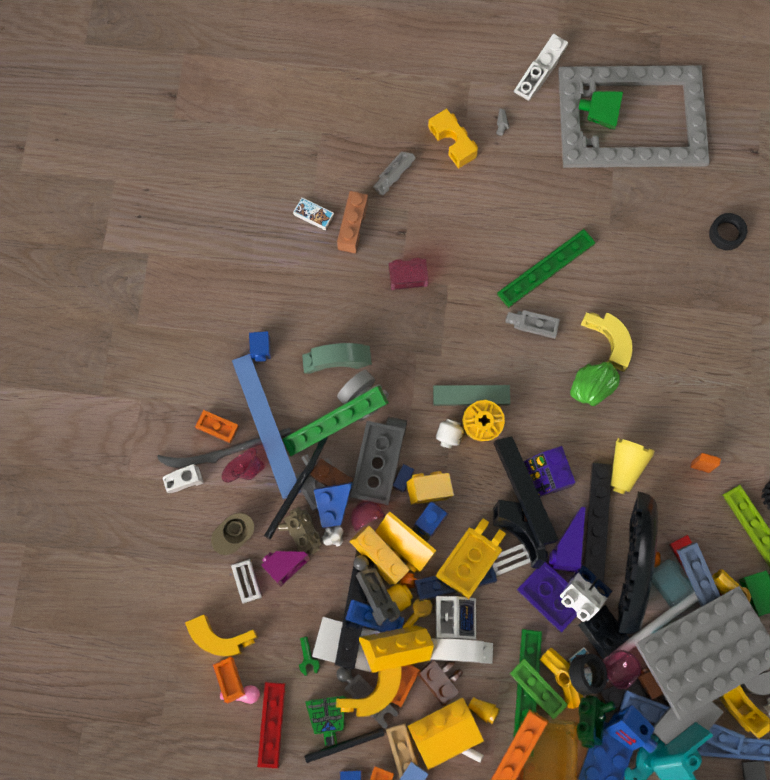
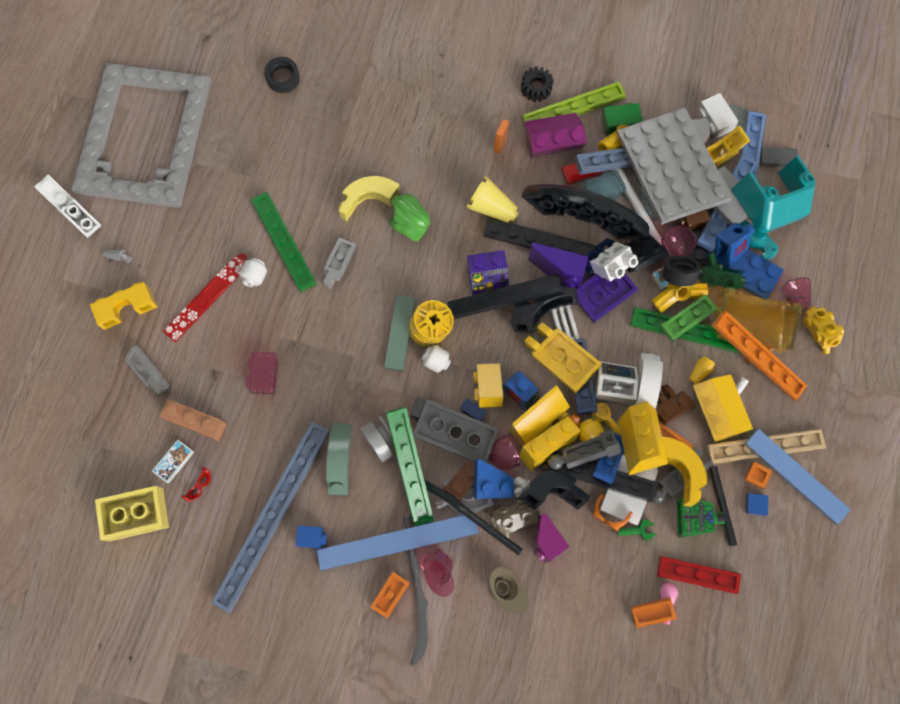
camera: 85 degrees left, 0 degrees up
(183, 479) = (441, 638): white leg -> none
(205, 638) = (617, 623): yellow arch -> none
(251, 597) = (538, 586): white tile -> none
(260, 188) = (131, 513): none -> light yellow brick
(276, 308) = (270, 518): none -> sand blue plate
(284, 234) = (189, 496): none -> red cap
(318, 615) = (614, 525): none -> orange cap
(340, 562) = (553, 483): none -> black arch
(476, 209) = (205, 298): none -> red piece
(506, 245) = (253, 272): none -> white head
(603, 108) = (128, 156): green torso -> none
(723, 520) = (555, 134): none -> magenta slope

